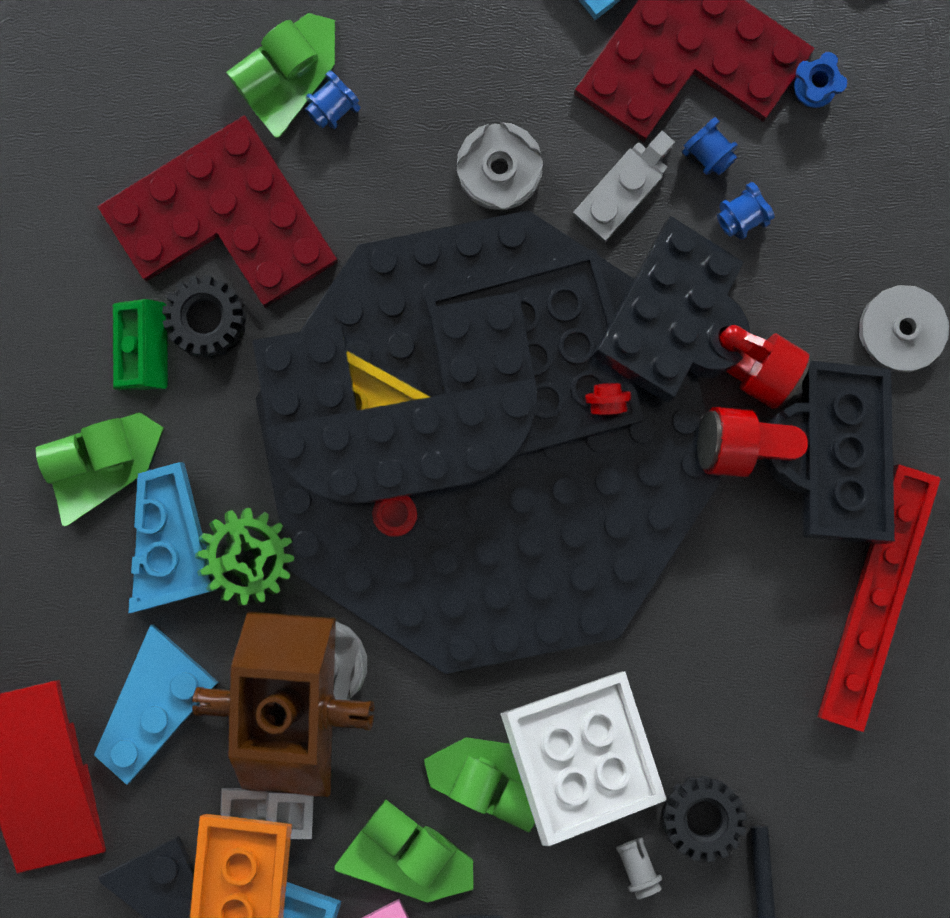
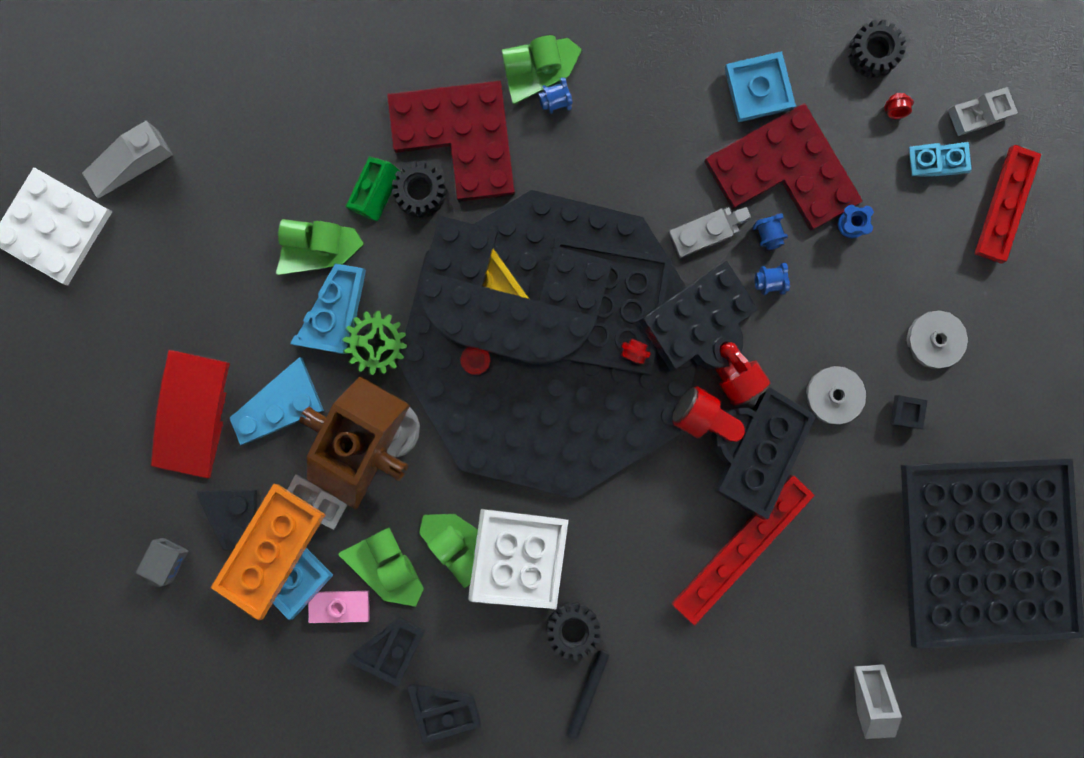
camera: 25 degrees right, 0 degrees up
(499, 144) = (641, 168): light grey plate -> none
(639, 868) = (520, 642): light grey pin -> none

